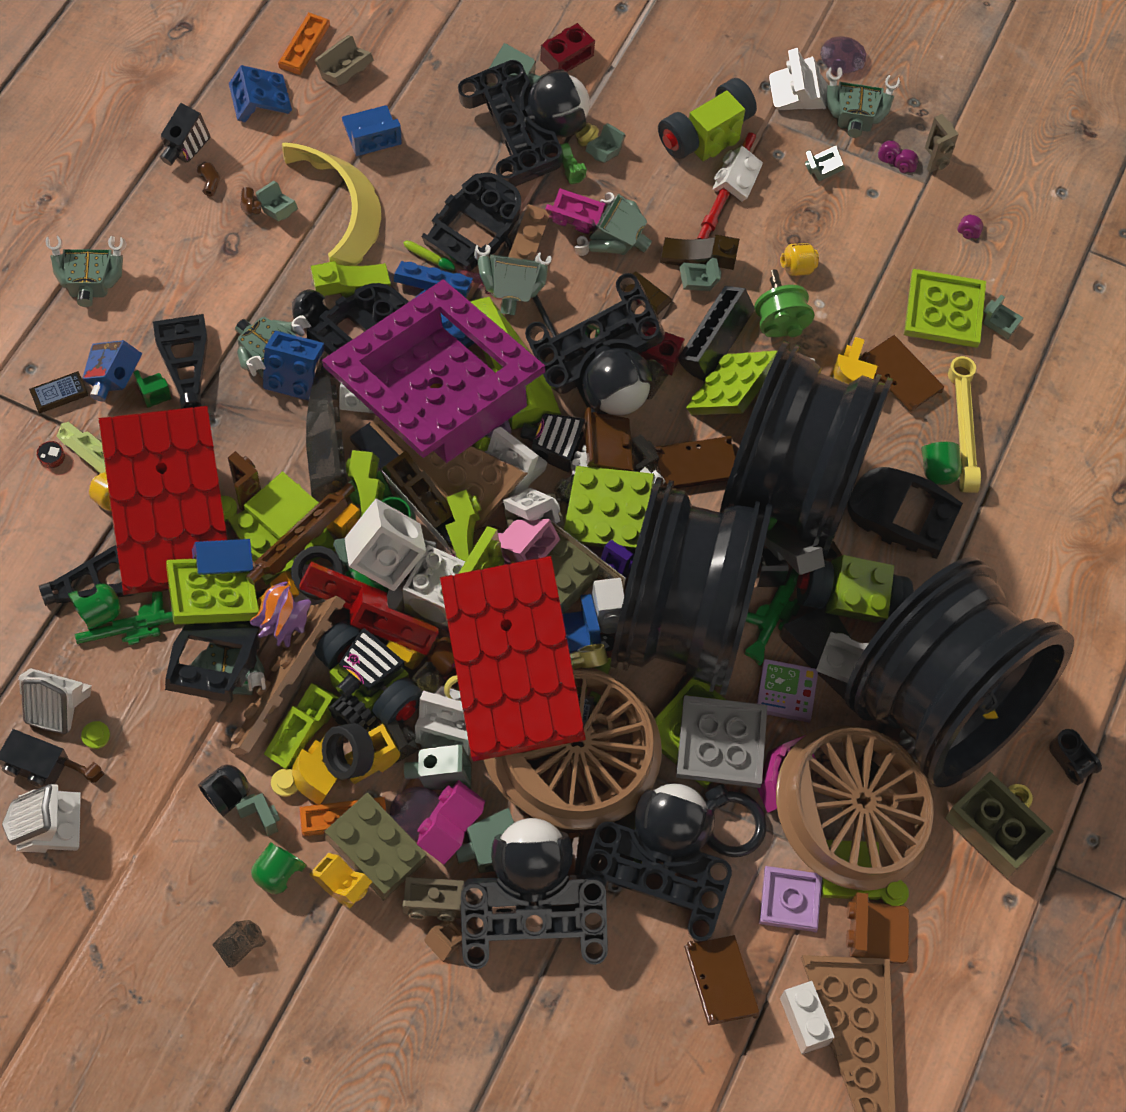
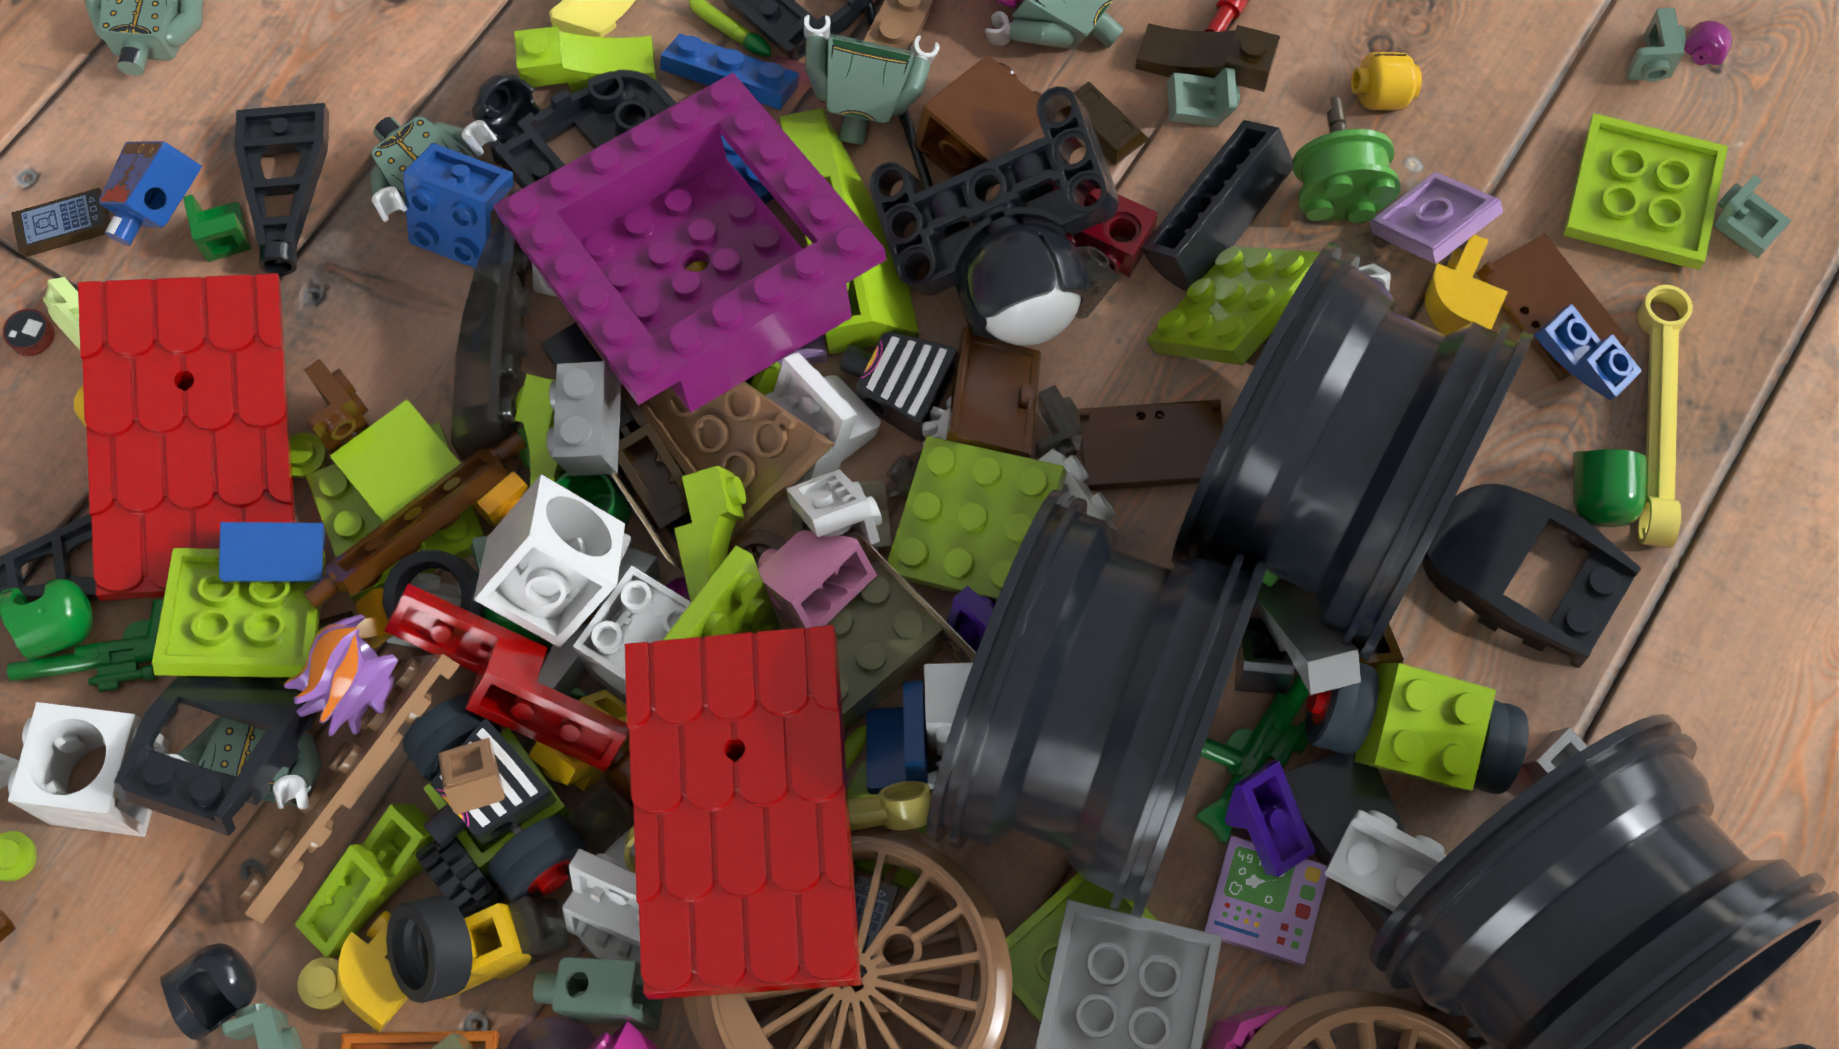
camera: 15 degrees right, 5 degrees up
(128, 660) = (53, 745): none -> white brick
(362, 657) = (471, 776): none -> medium nougat slope
(392, 469) = (585, 418): none -> light grey brick
(580, 295) = (978, 118): none -> reddish brown slope
(784, 642) = (1272, 817): none -> dark purple slope
(834, 330) = (1436, 217): none -> lavender tile
(930, 400) = (1595, 362): none -> blue slope
(947, 231) = (1663, 48): none -> sand green bracket

